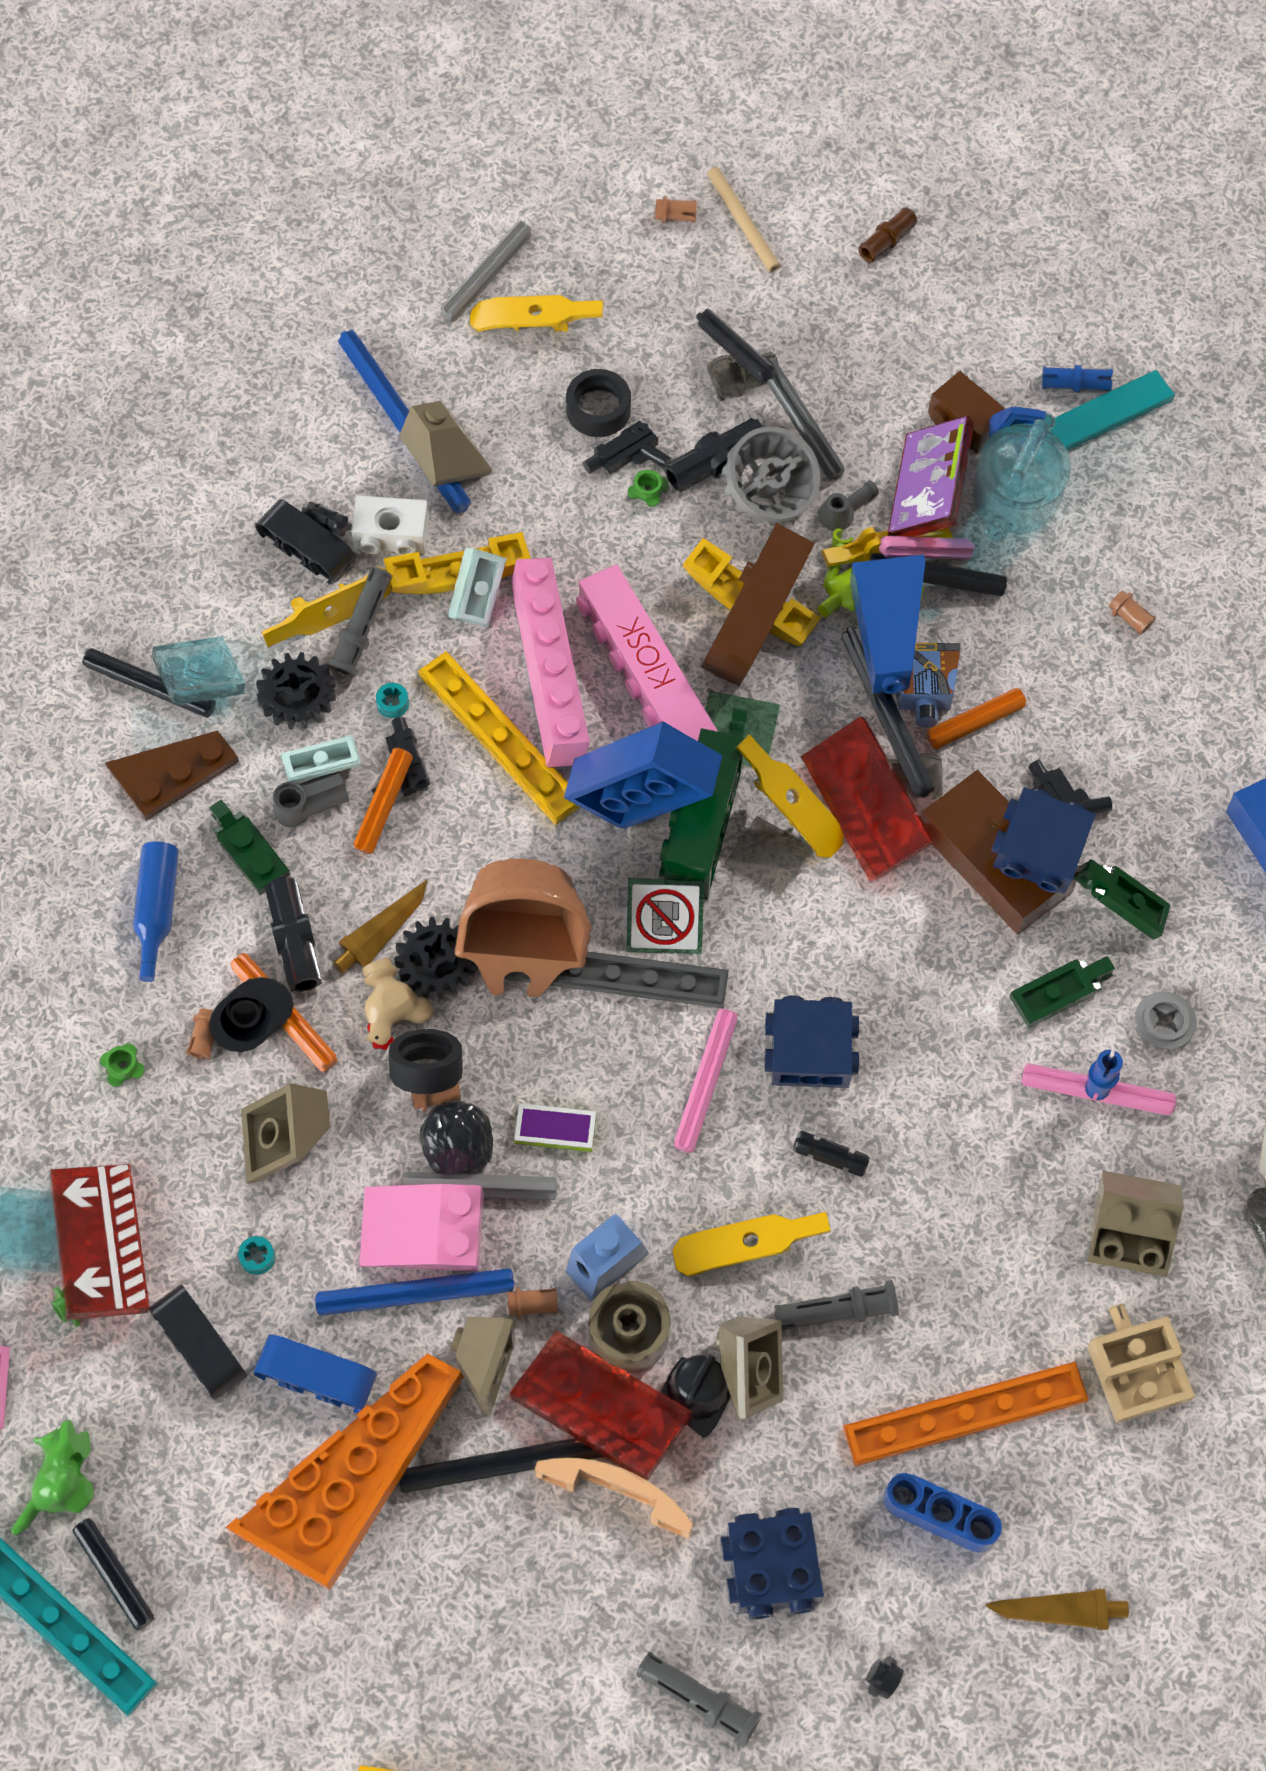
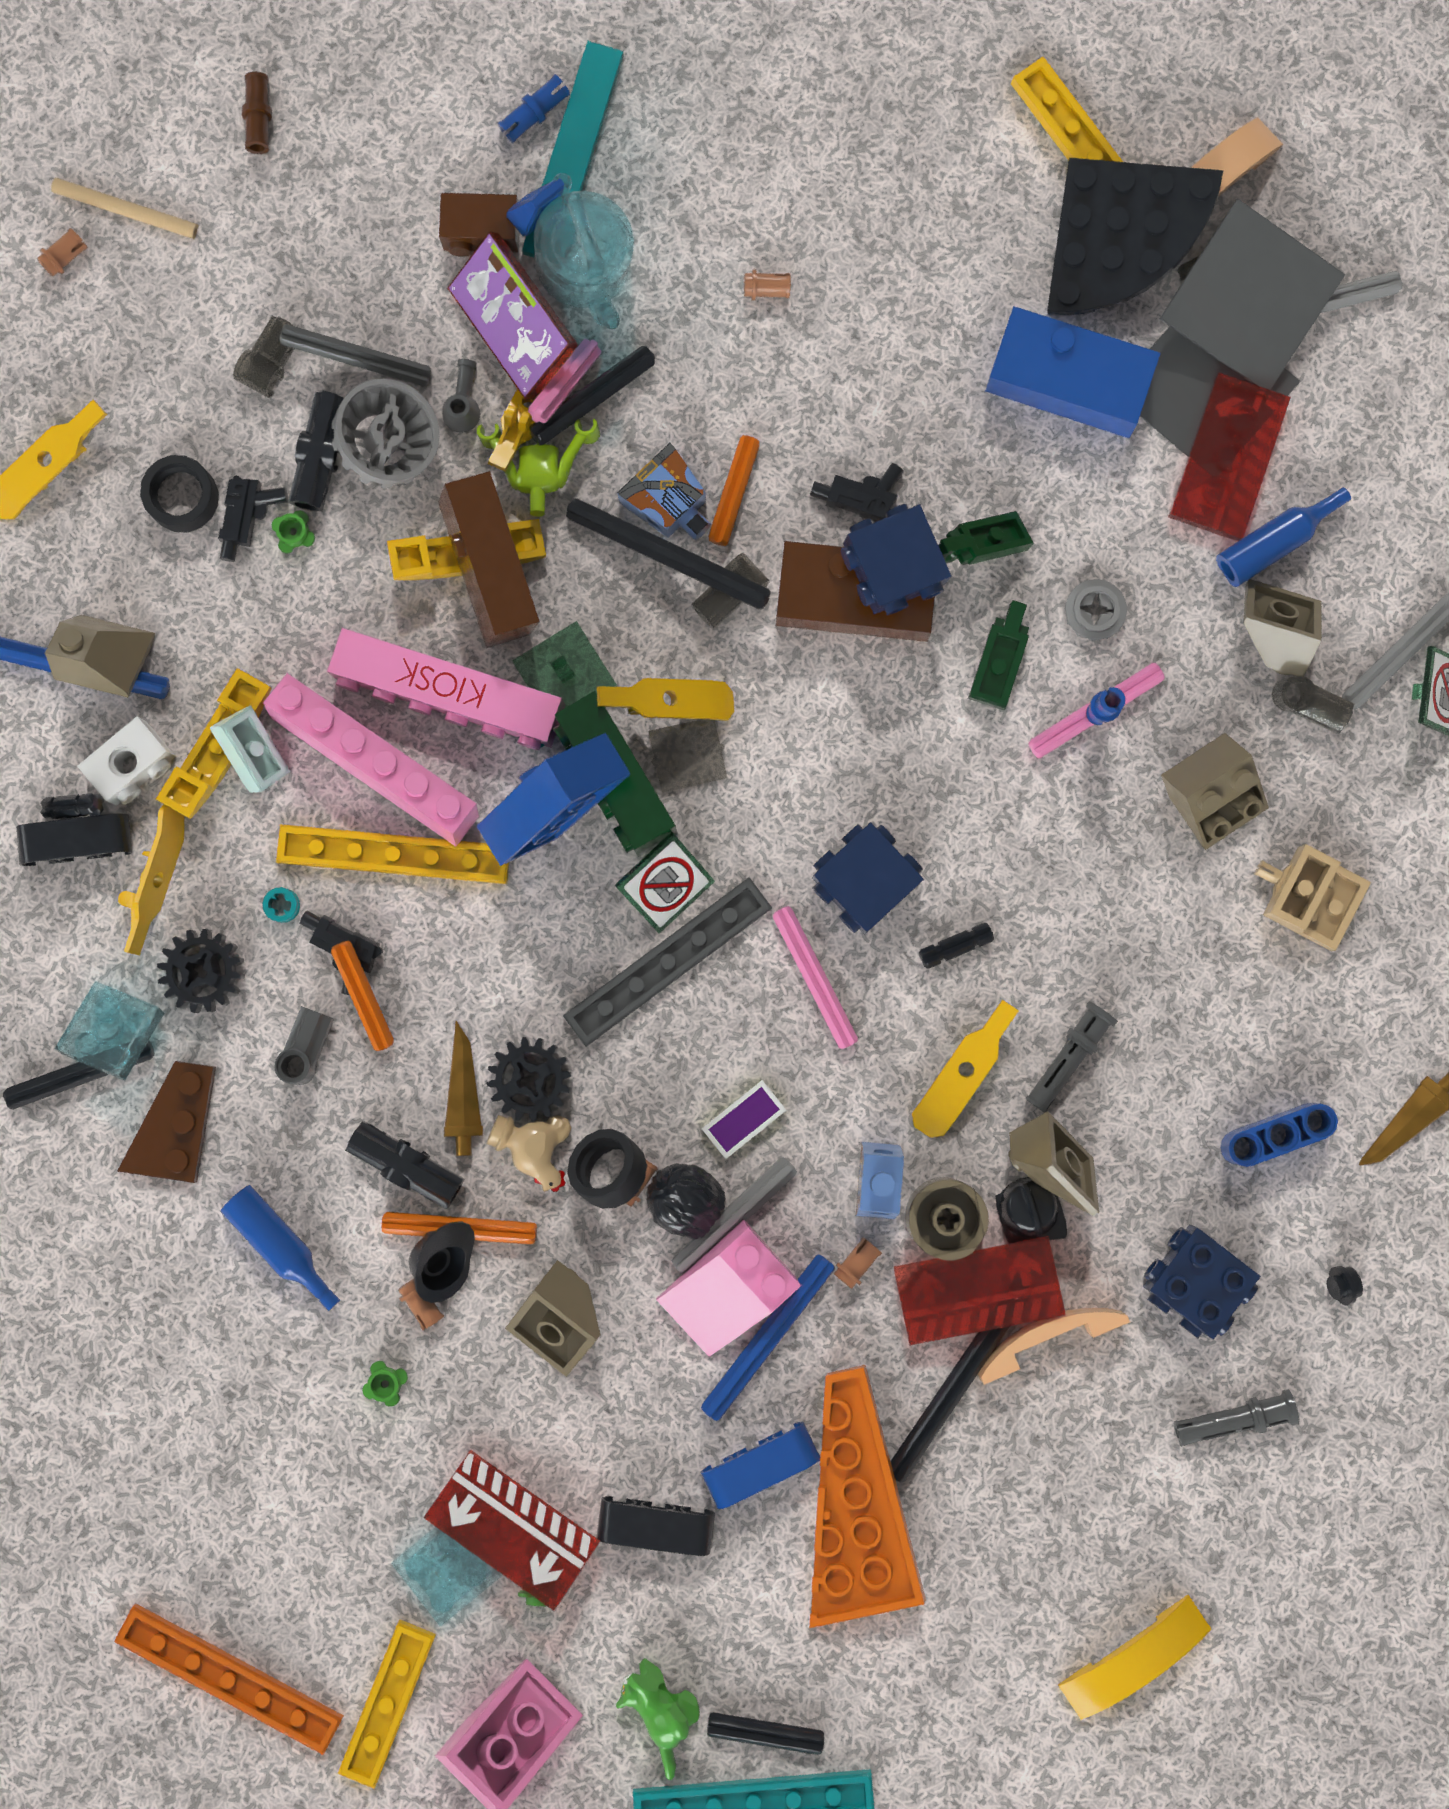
camera: 40 degrees left, 20 degrees up
(247, 847) = (298, 1130): dark green hinge -> none
(251, 1266) = (637, 1433): teal bush -> none
(321, 759) = (282, 1010): light aqua slope -> none
(354, 636) = (200, 884): dark grey pin -> none
(483, 1356) = (868, 1342): dark tan slope -> none
(524, 921) = (571, 994): nougat piece -> none
(735, 346) = (241, 340): black axle -> none
(867, 799) = (722, 641): clear red tile -> none
(887, 614) = (598, 474): blue slope -> none
(965, 1413) = (1225, 1045): orange tile -> none

